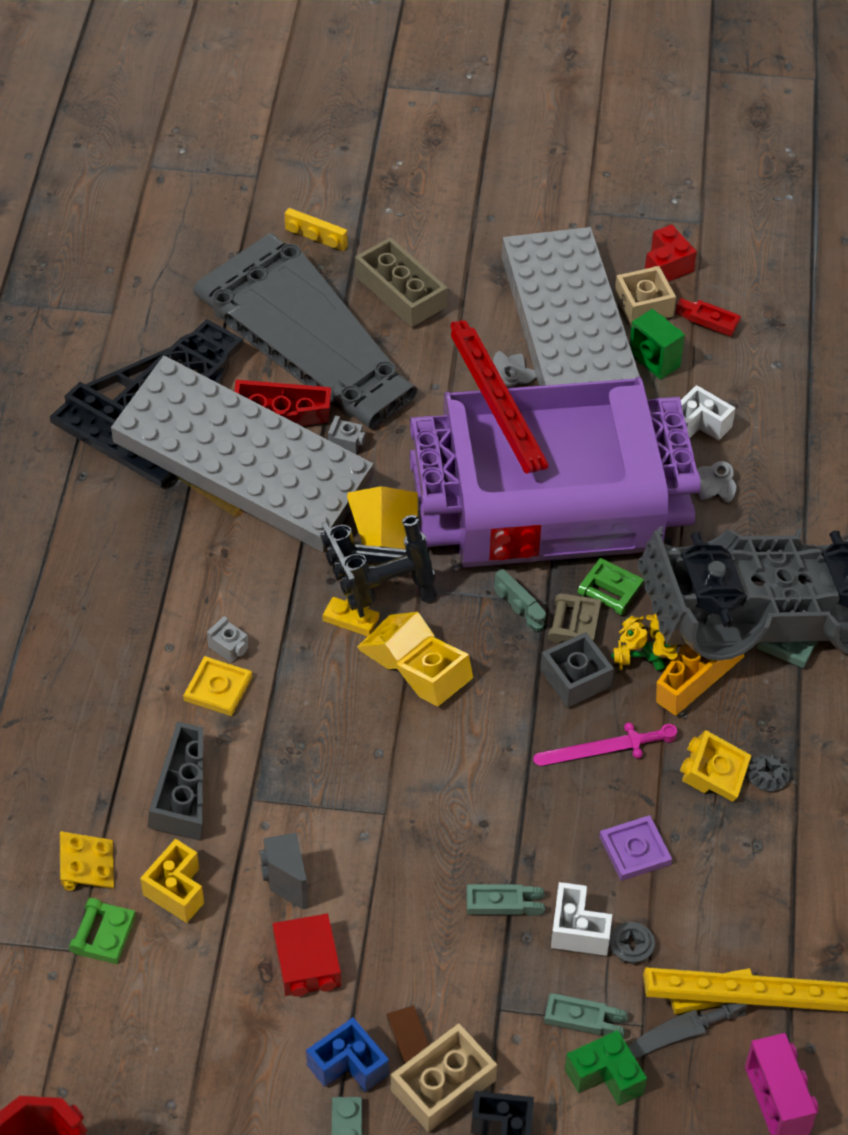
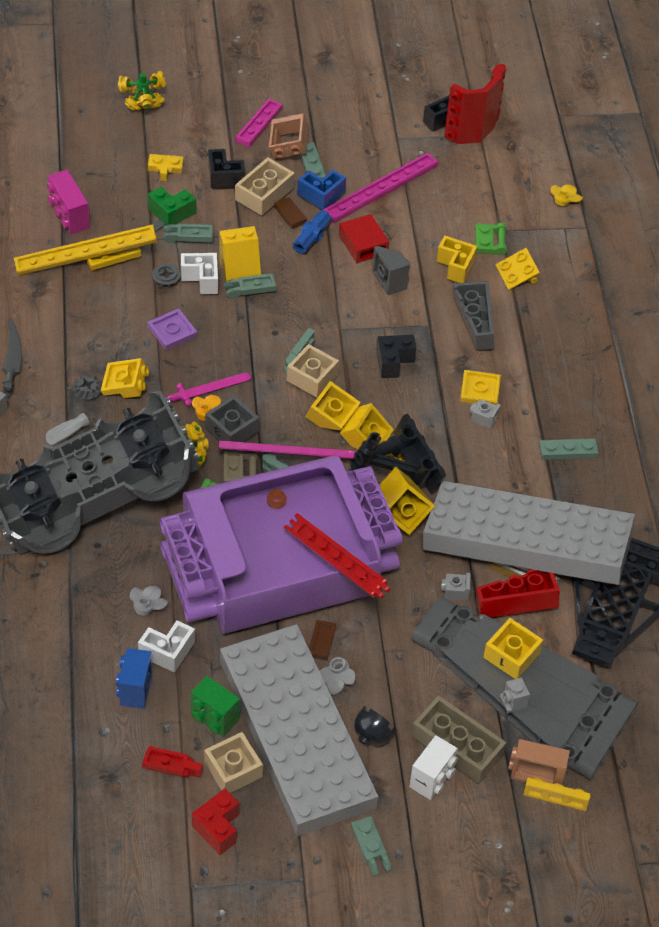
camera: 165 degrees right, 0 degrees up
(136, 583) = (568, 449): none -> sand green plate
(233, 1070) = (381, 187): none -> dark pink tile
(314, 328) = (513, 648): none -> yellow brick
(316, 226) = (538, 761): none -> nougat window
(325, 746) = (392, 352): none -> black brick
(329, 291) = (515, 695): none -> light grey brick
(385, 983) = (312, 232): none -> blue piece
(440, 252) = (433, 768): none -> white brick
(448, 728) = (312, 370): none -> tan brick
(457, 773) = (307, 338): none -> sand green hinge
(486, 306) = (373, 728): none -> black cylinder
(503, 615) = (281, 449): none -> dark pink tile
(515, 938) = (239, 253): none -> yellow slope
(516, 221) = (370, 844): none -> sand green hinge
(601, 716) = (205, 405): none -> light orange plate
(743, 382) = (134, 678): none -> blue brick
(800, 713) = (66, 429): none -> light grey piece

